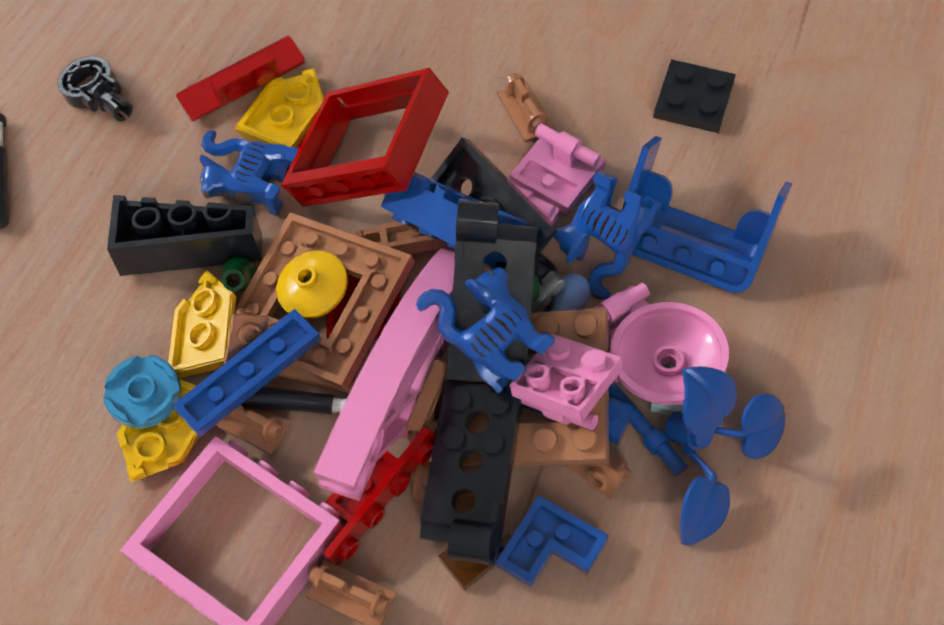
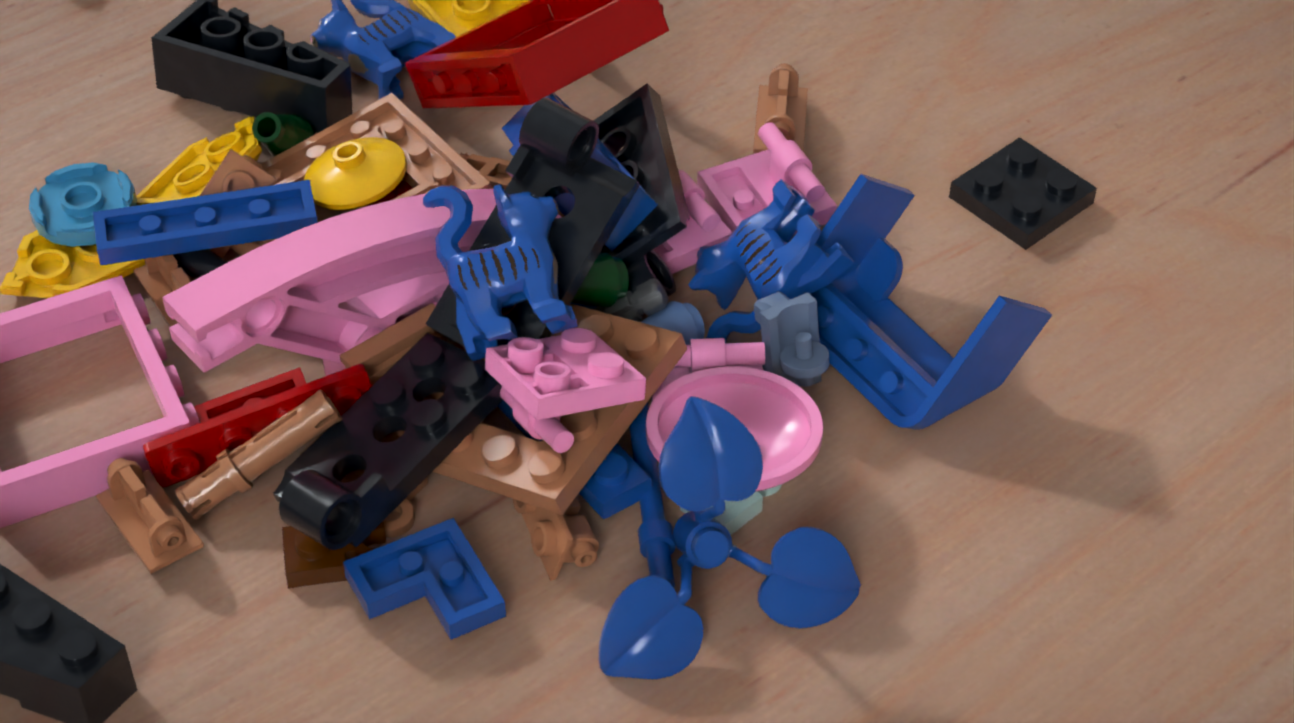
camera: 25 degrees right, 15 degrees down
(388, 532) = (248, 461): none -> nougat pin
(651, 268) = (792, 338): none -> sand blue hips

